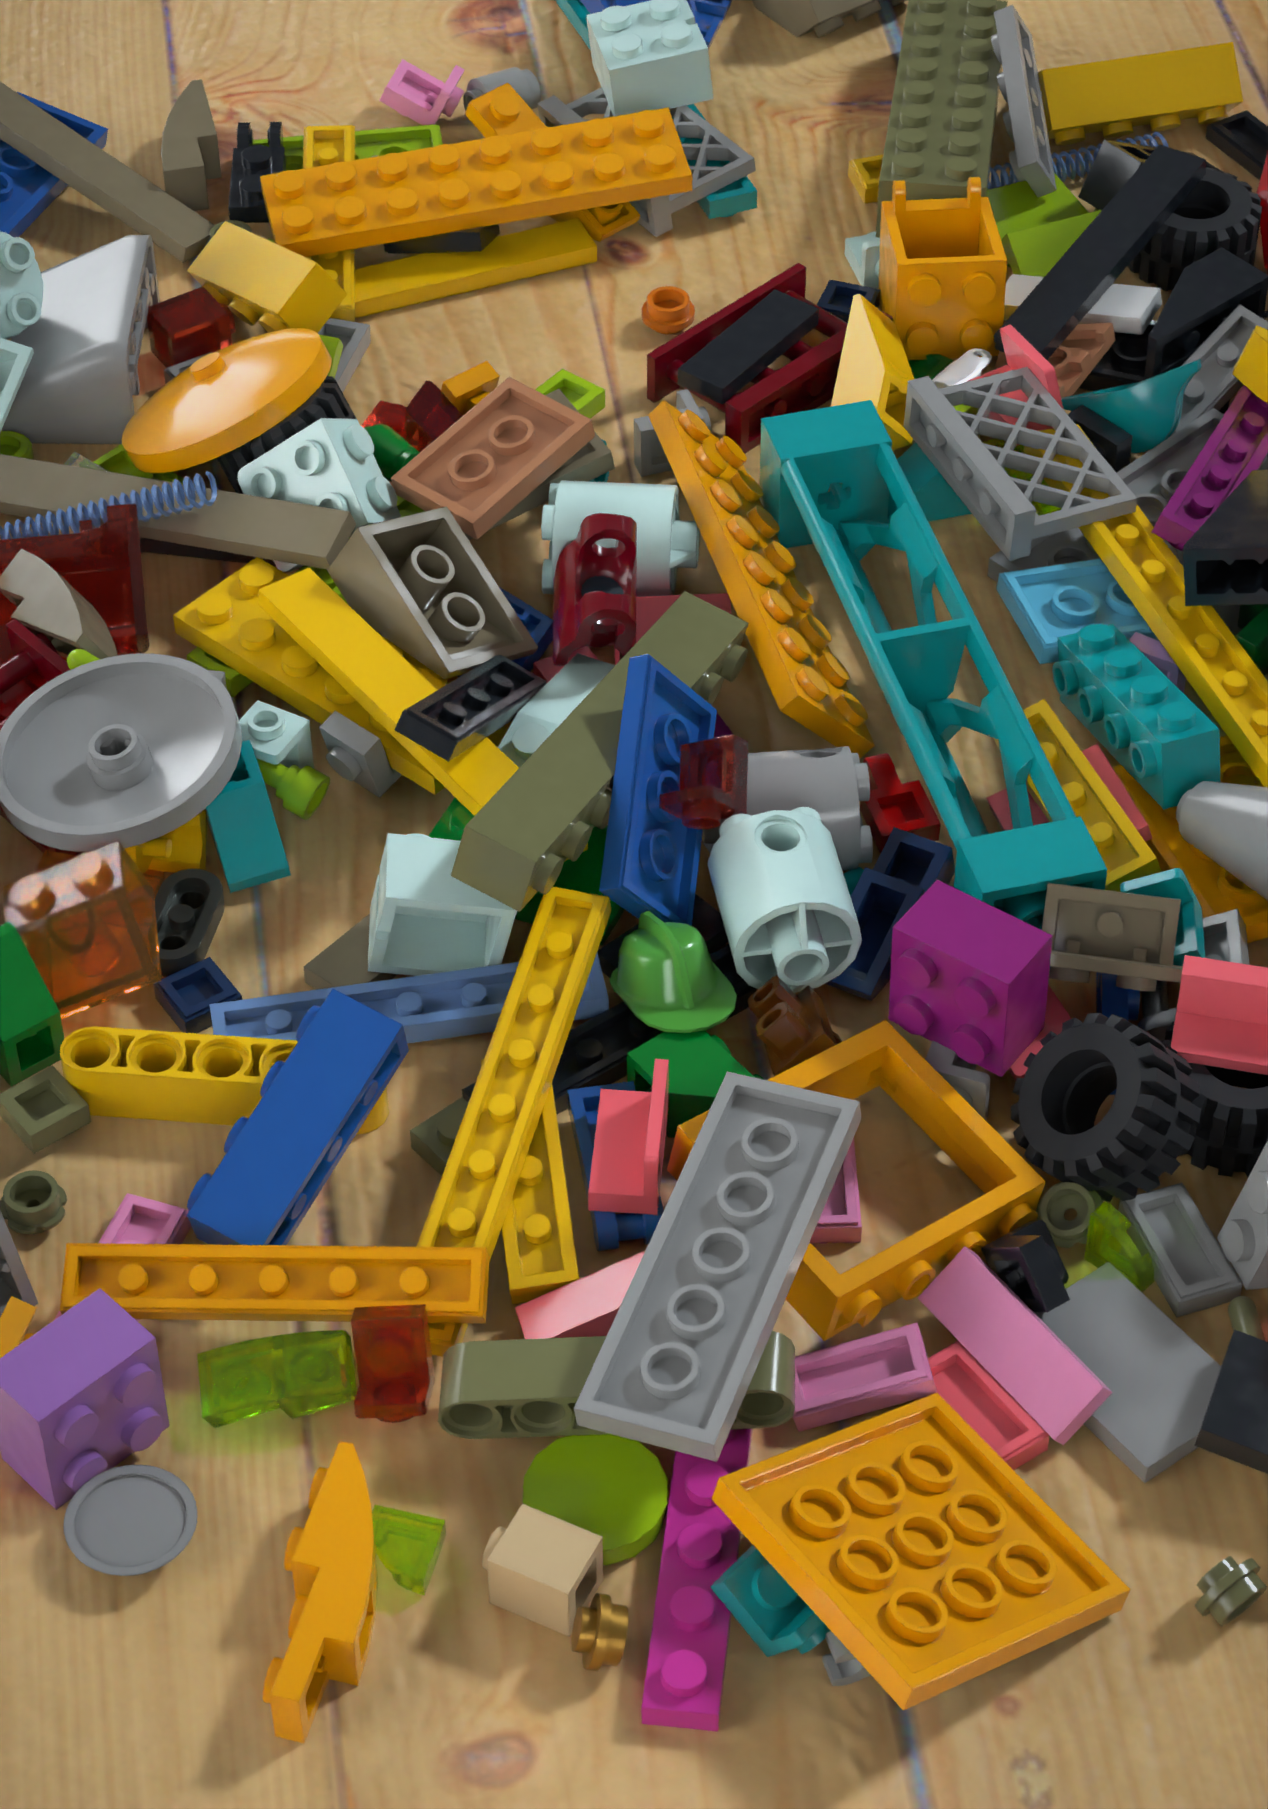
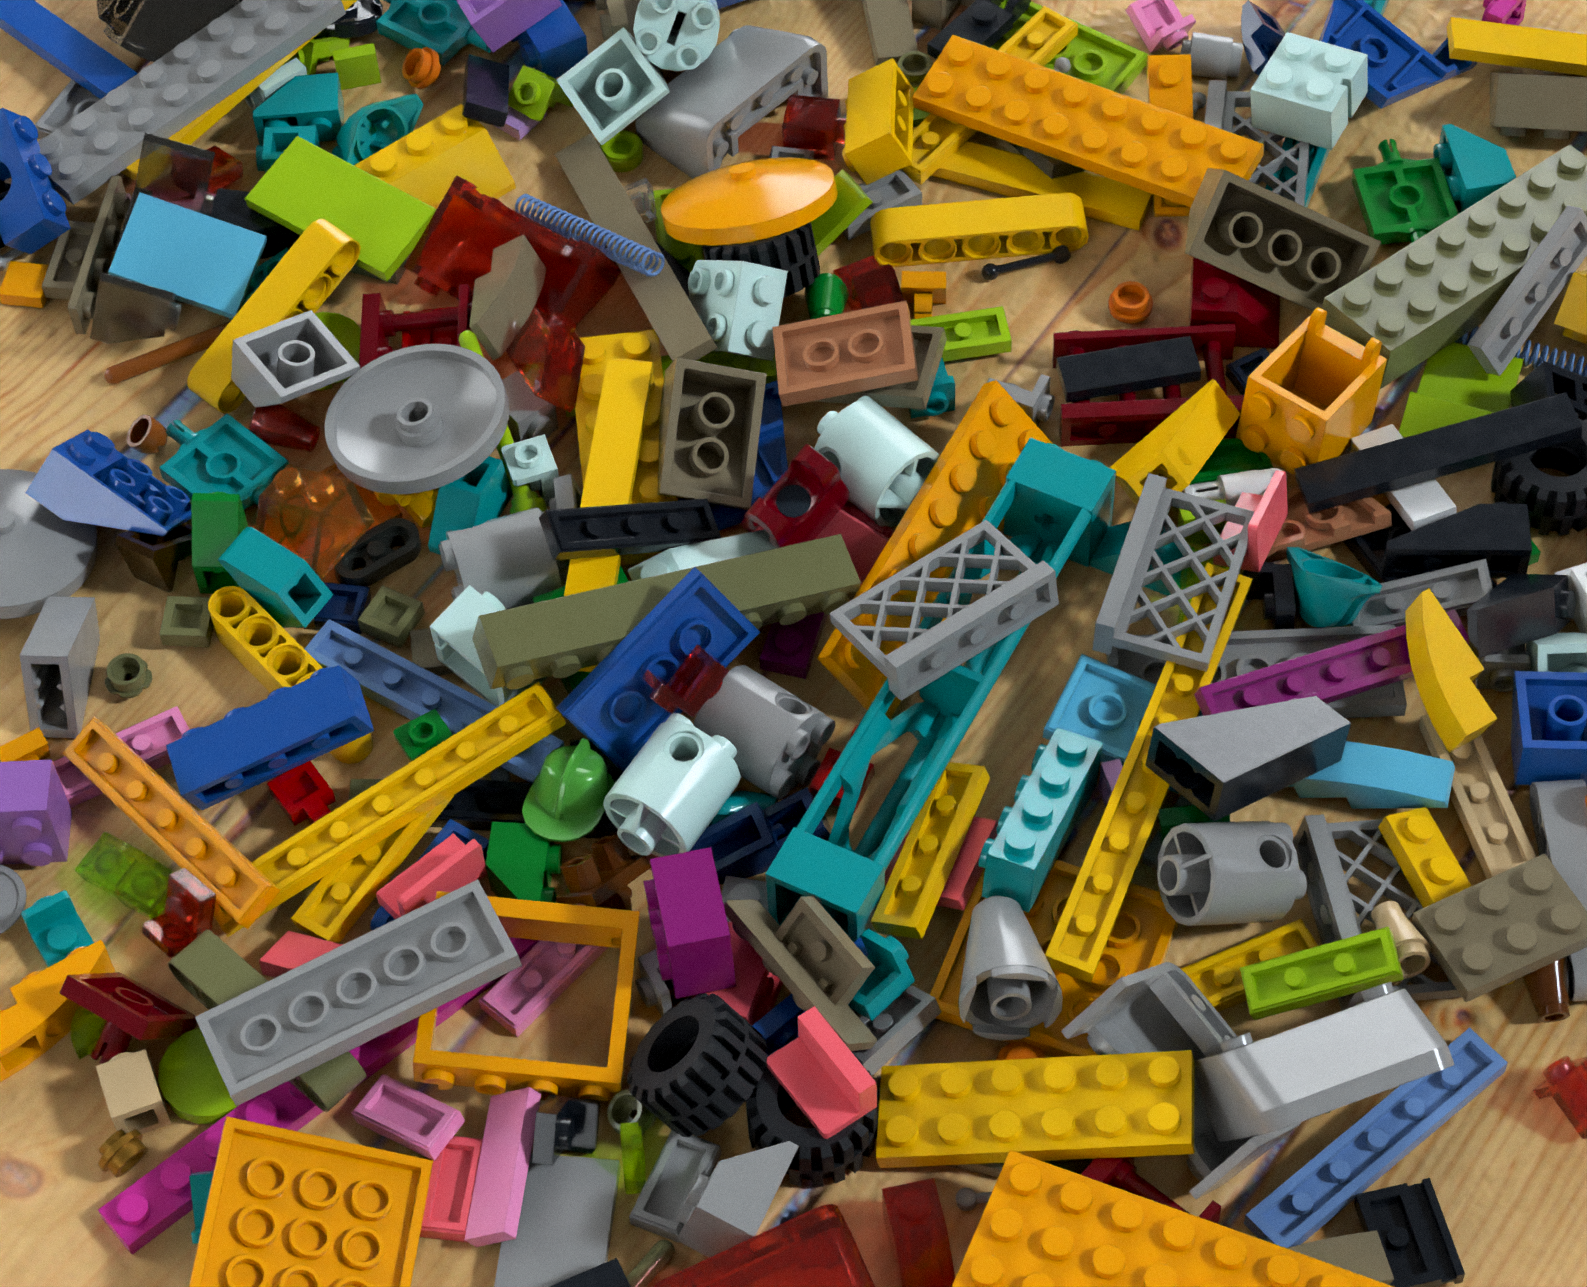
camera: 45 degrees right, 10 degrees up
(118, 988) = (275, 578): none -> teal slope
(182, 627) = (549, 357): none -> clear red slope
(258, 1490) = (55, 927): none -> teal bracket
(269, 964) = (391, 616): none -> olive plate
(337, 833) = (504, 558): none -> light grey cylinder
(381, 1175) = (302, 793): none -> red plate
(453, 1495) = (128, 1011): none -> dark red tile
(457, 327) = (978, 229): none -> yellow beam
(464, 1029) = (422, 734): none -> green bracket
(505, 357) = (1060, 255): none -> black hinge
(541, 61) = (1259, 35): none -> slope
(739, 252) = (1226, 299): none -> dark red slope
(766, 171) = (1274, 240): none -> dark tan slope
(808, 115) = (1402, 196): none -> green plate
(840, 64) = (1471, 165): none -> teal slope
(915, 578) = (966, 627): none -> light grey fence

